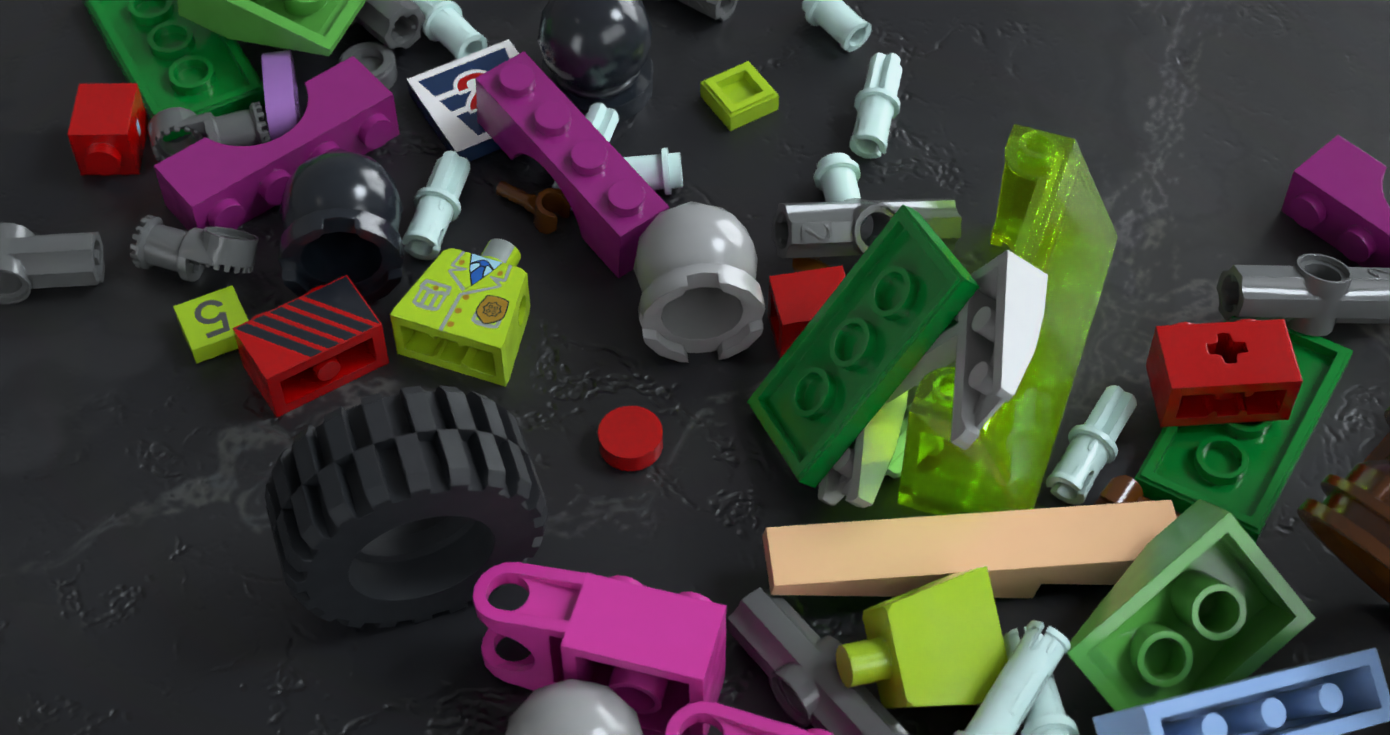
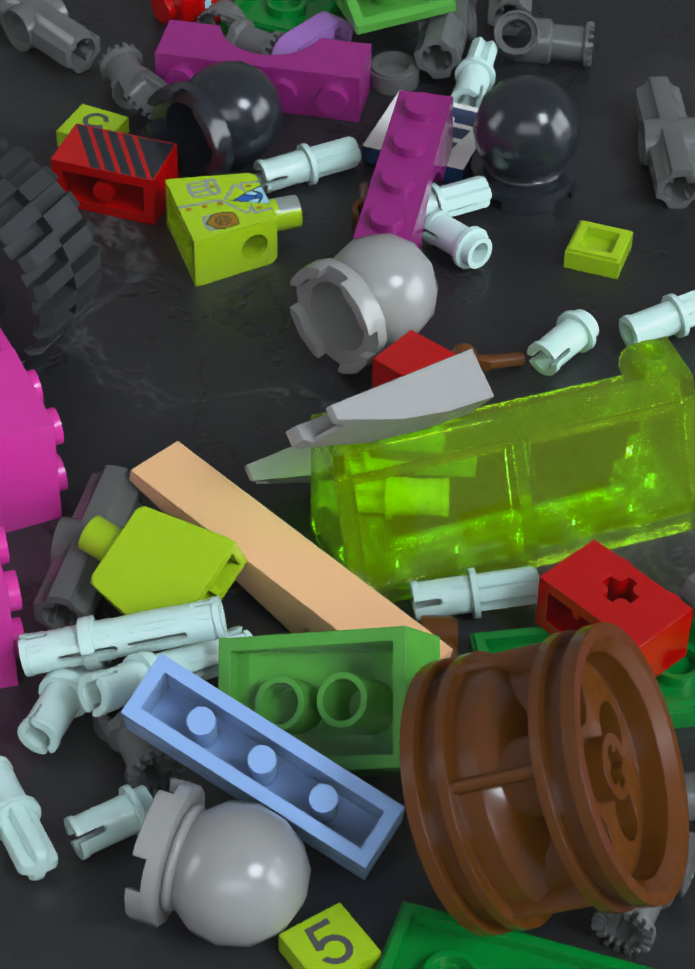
camera: 50 degrees right, 10 degrees down
(630, 438) = (210, 360): red tile -> none
(835, 227) = (500, 338): dark grey piece -> none
(861, 345) = (412, 354): green tile -> none

